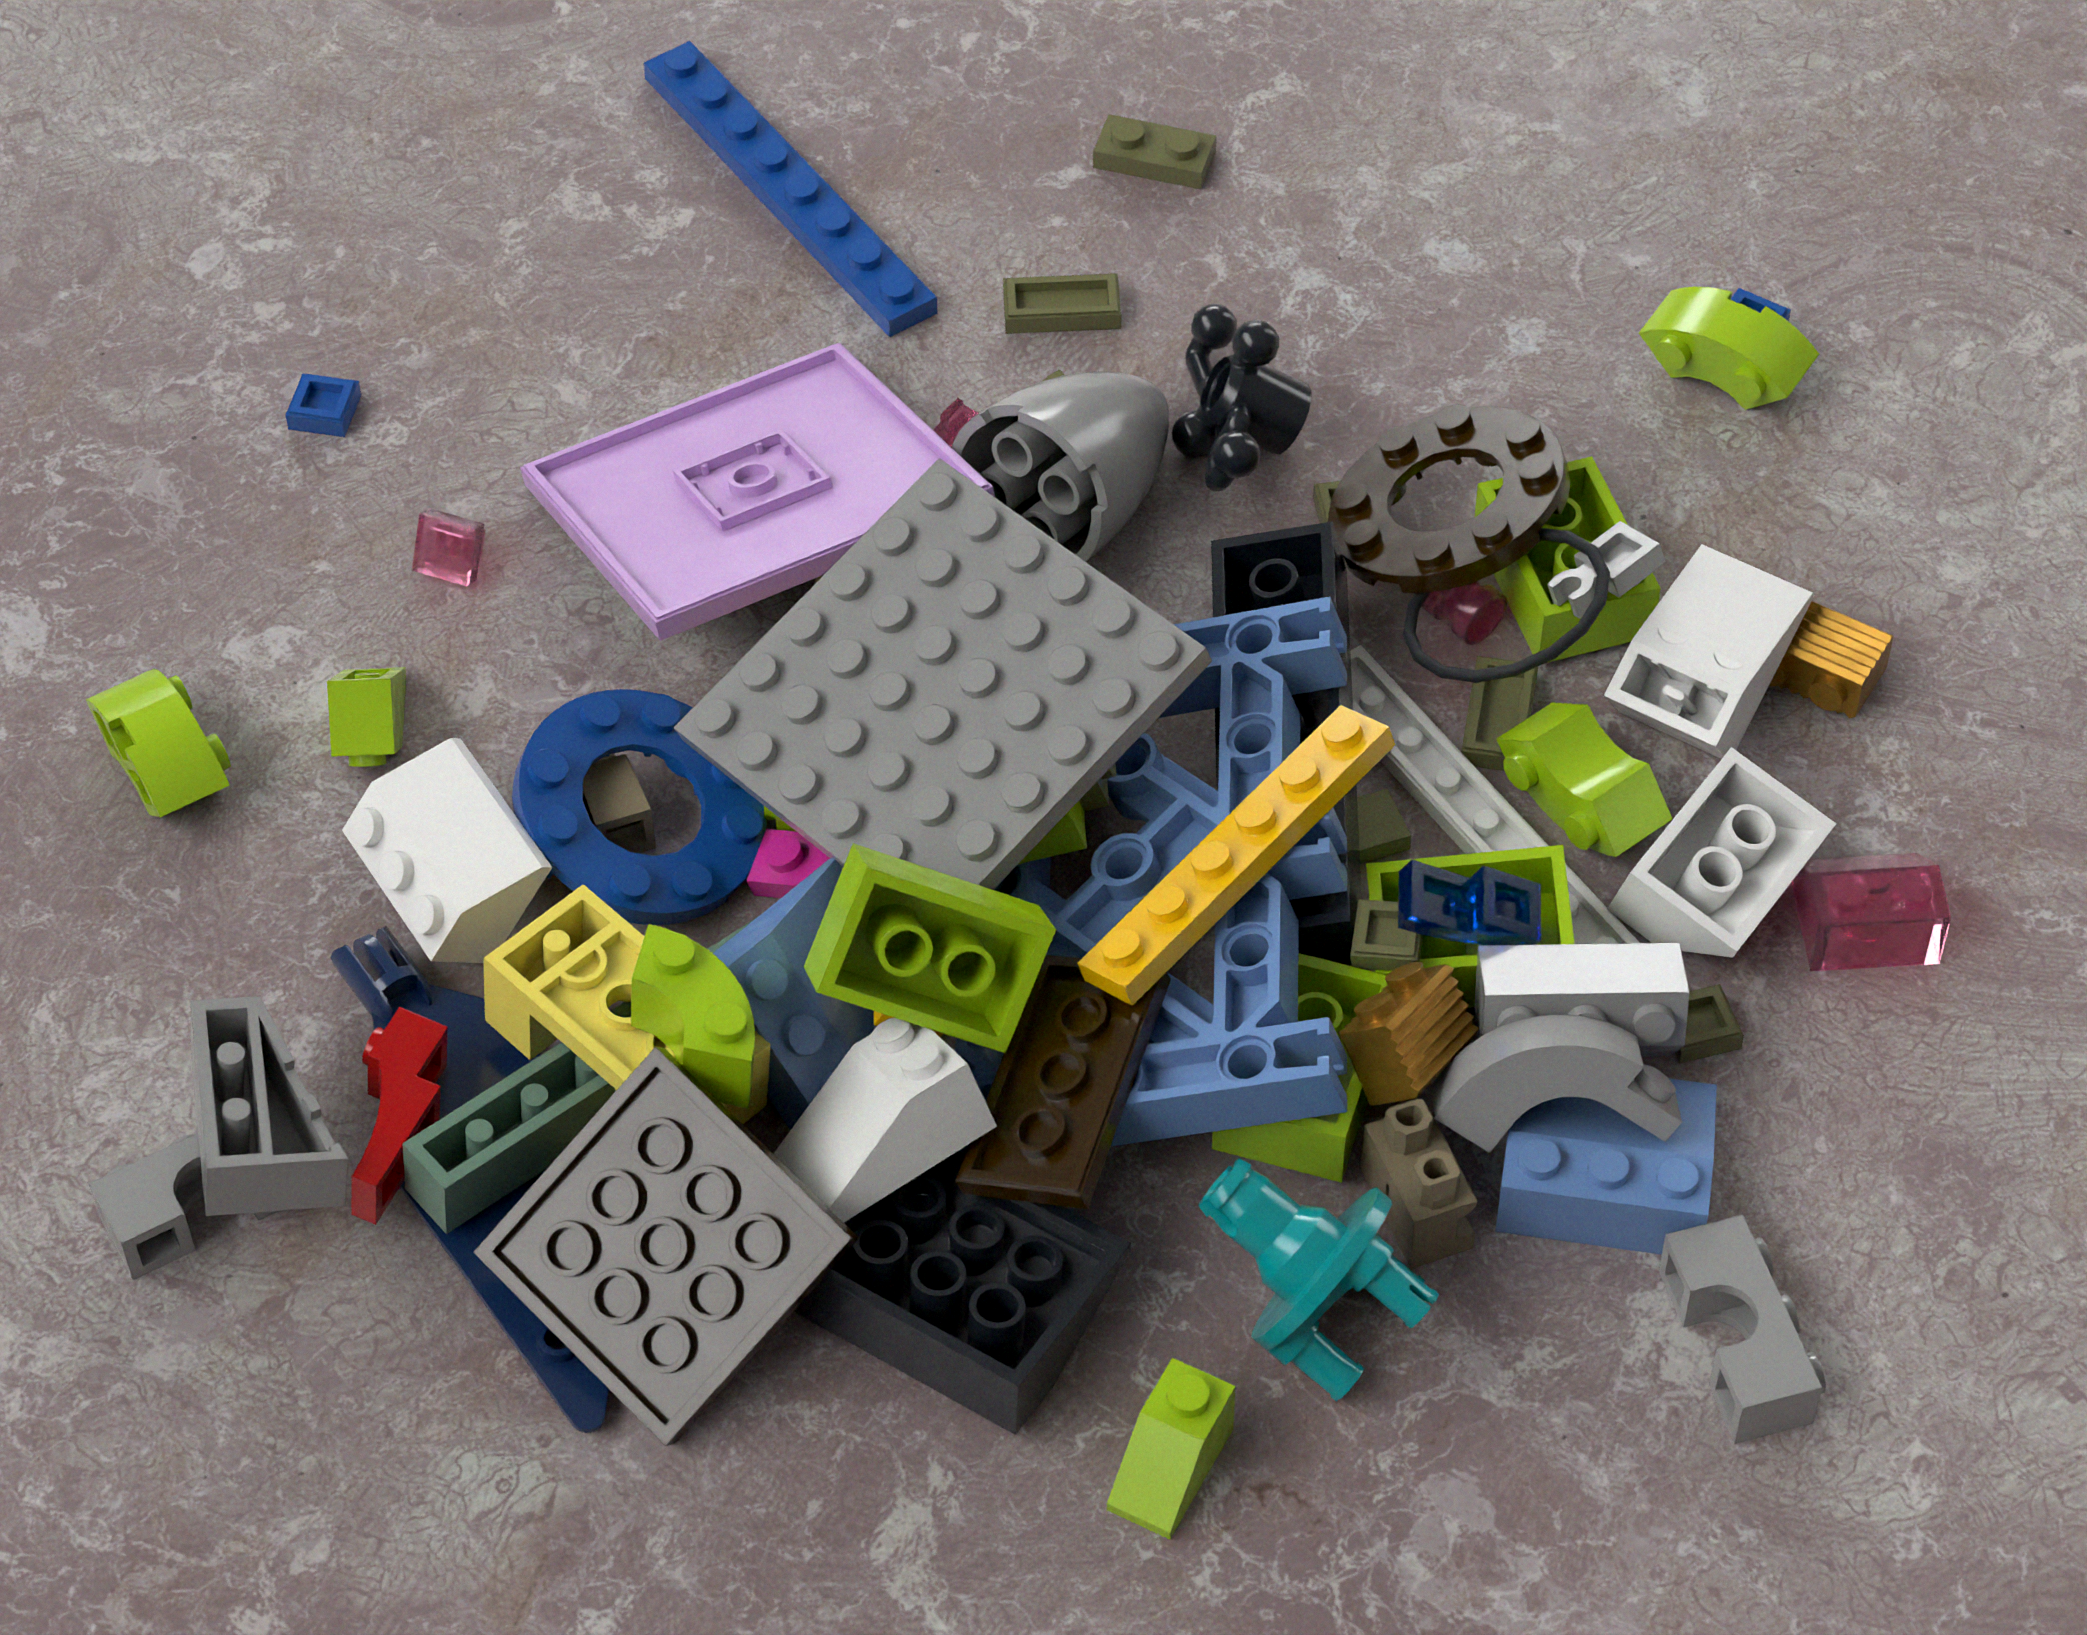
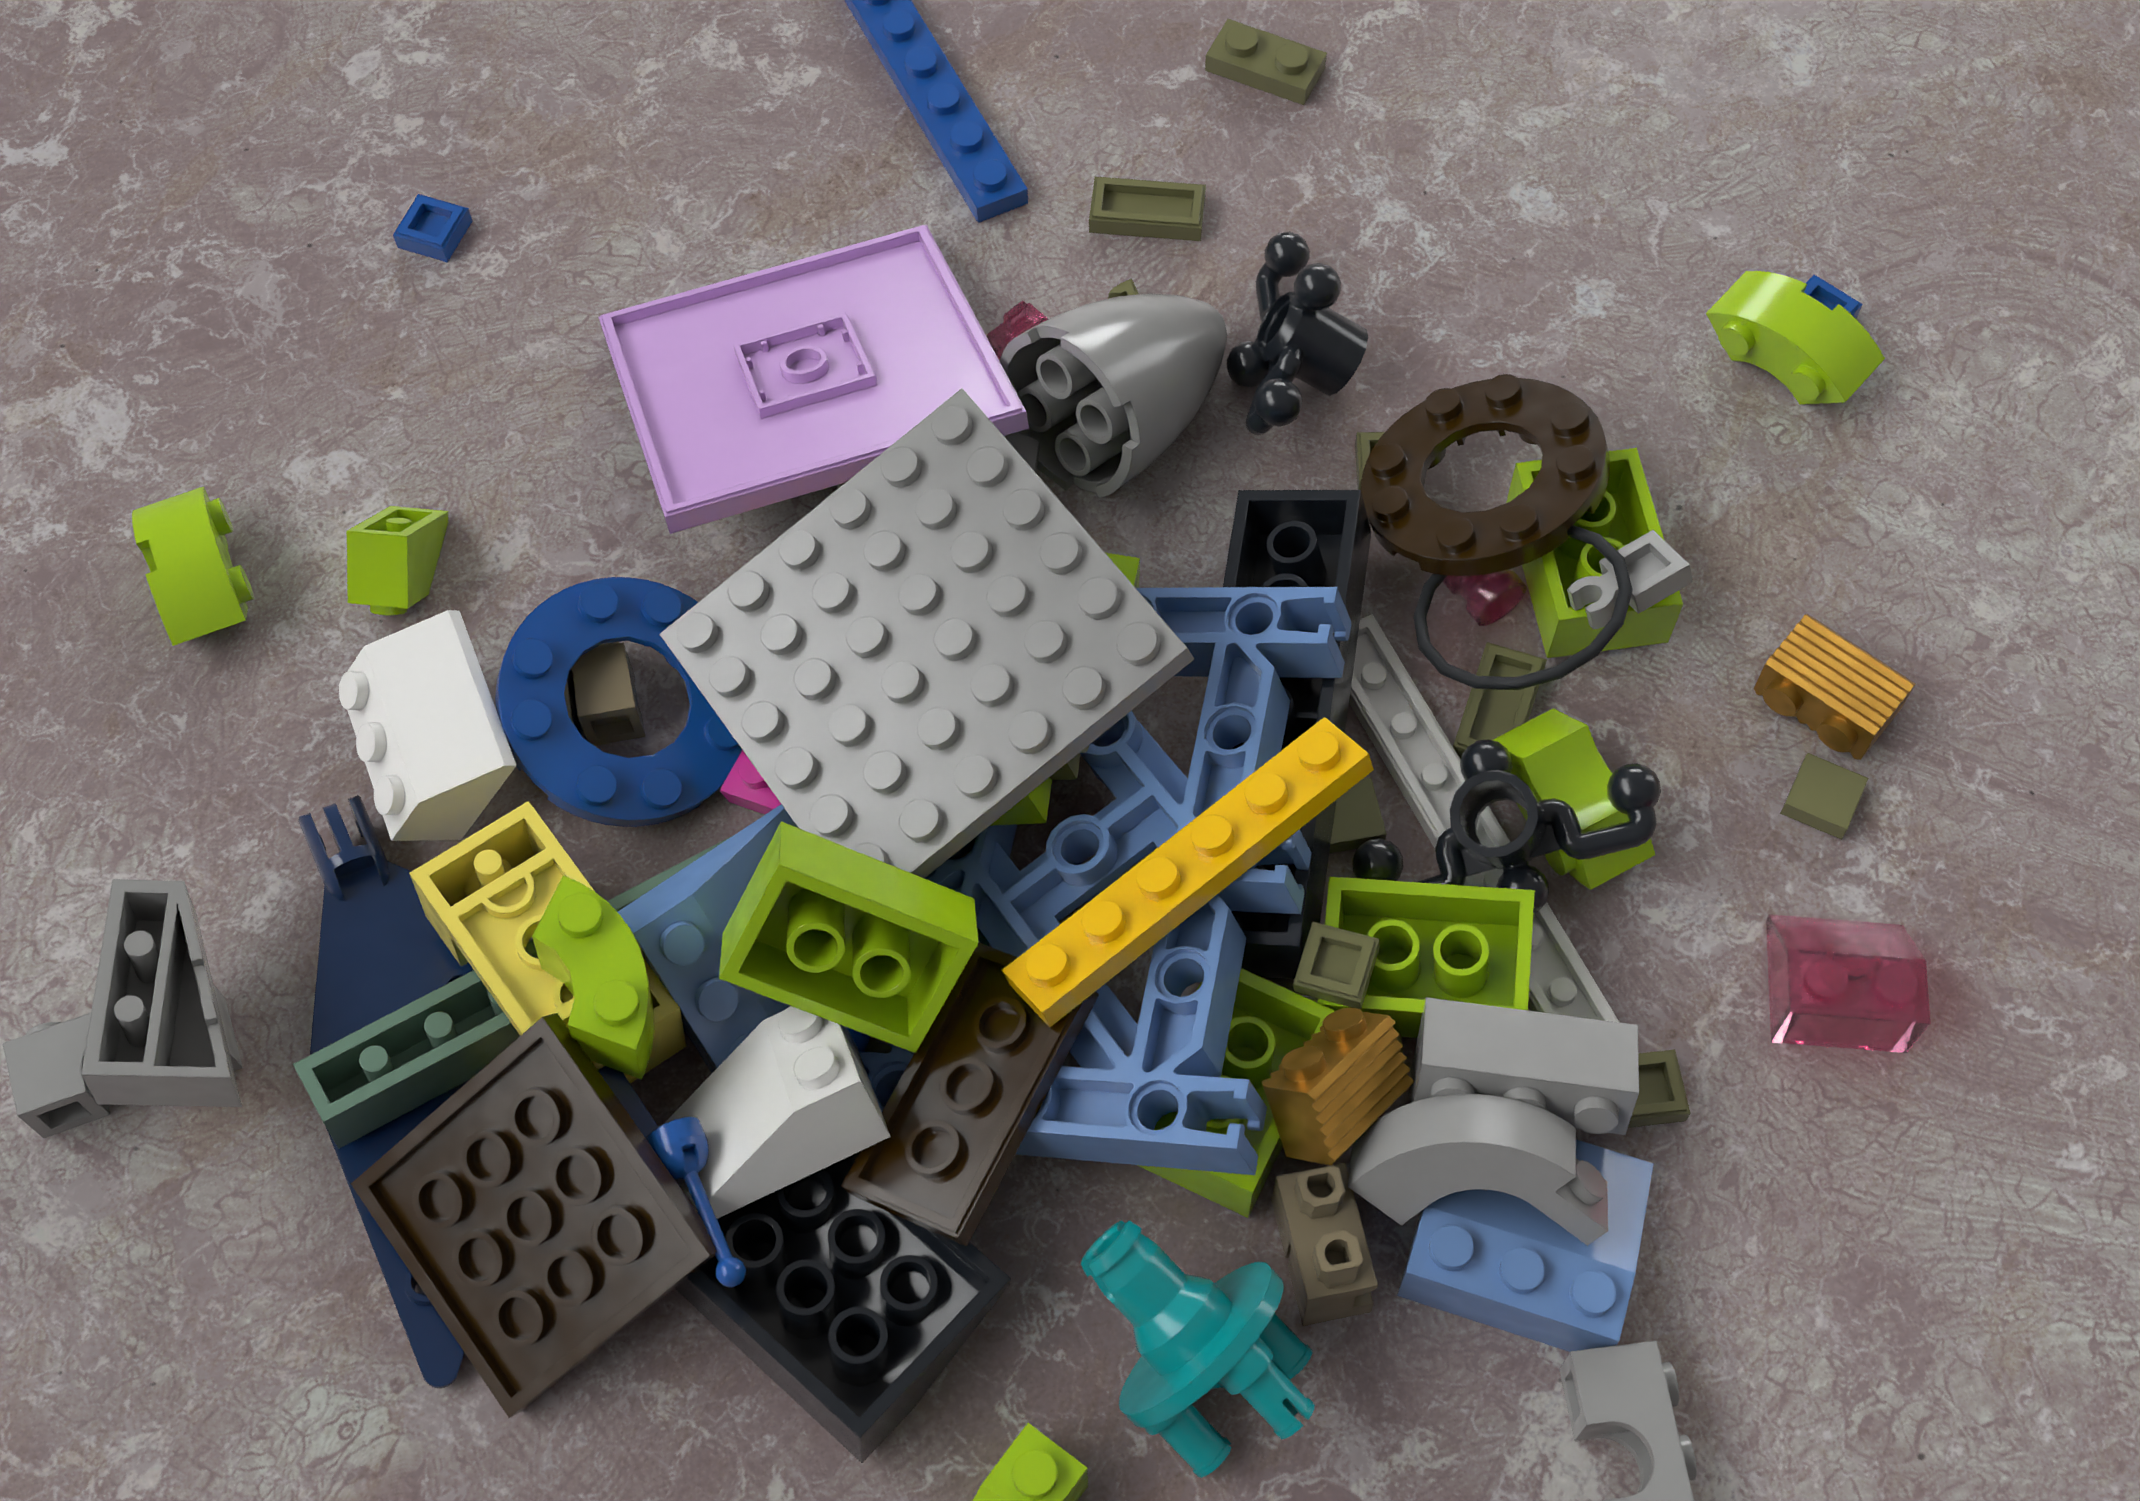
camera: 10 degrees right, 10 degrees up
(401, 1073) = (331, 961): red slope -> none
(448, 547) = (511, 392): clear pink tile -> none
(808, 1162) = (684, 1153): none -> blue hinge
(1473, 910) = (1425, 952): clear blue slope -> none
(1566, 795) = (1549, 826): none -> black wheel
(1709, 651) = (1724, 677): white slope -> none
(1721, 861) = (1699, 918): white slope -> none
(1825, 751) = (1824, 796): none -> olive tile

